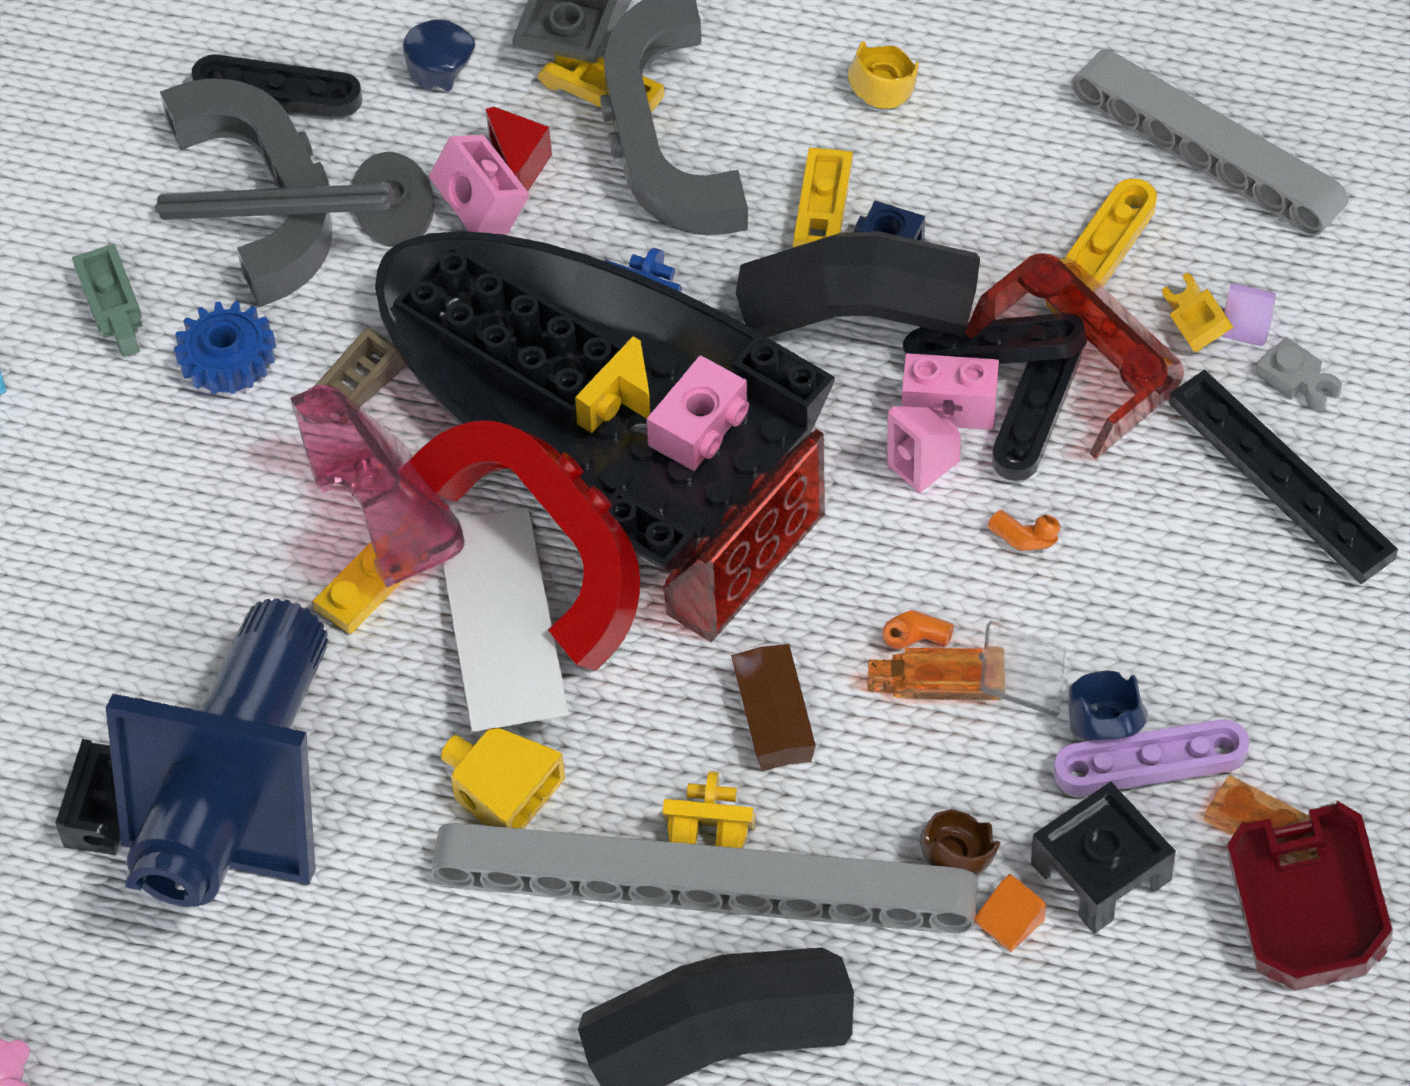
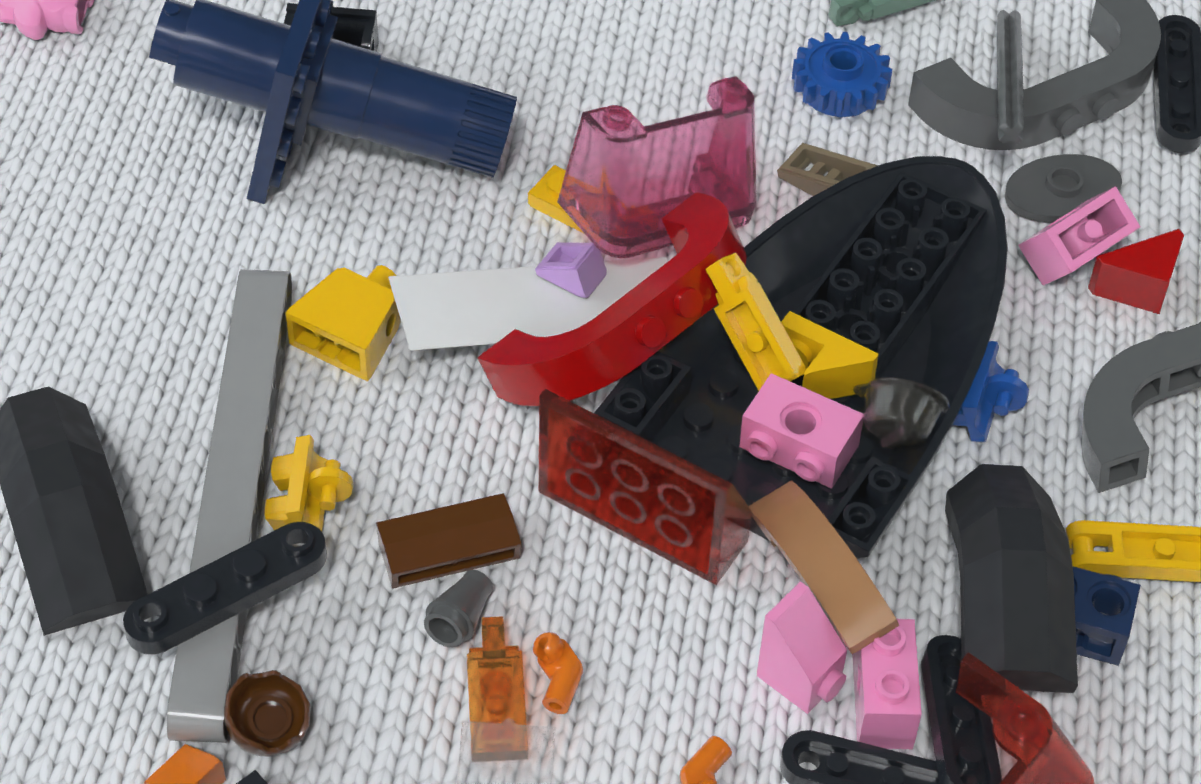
camera: 80 degrees right, 5 degrees down
(460, 588) = (573, 267): none -> lavender slope
(593, 424) = (753, 323): none -> yellow hinge
(706, 332) = (900, 410): none -> clear smoke piece
(838, 863) = (224, 588): none -> black plate
(842, 407) = (824, 565): none -> medium nougat slope
(851, 699) = (456, 612): none -> dark grey cone

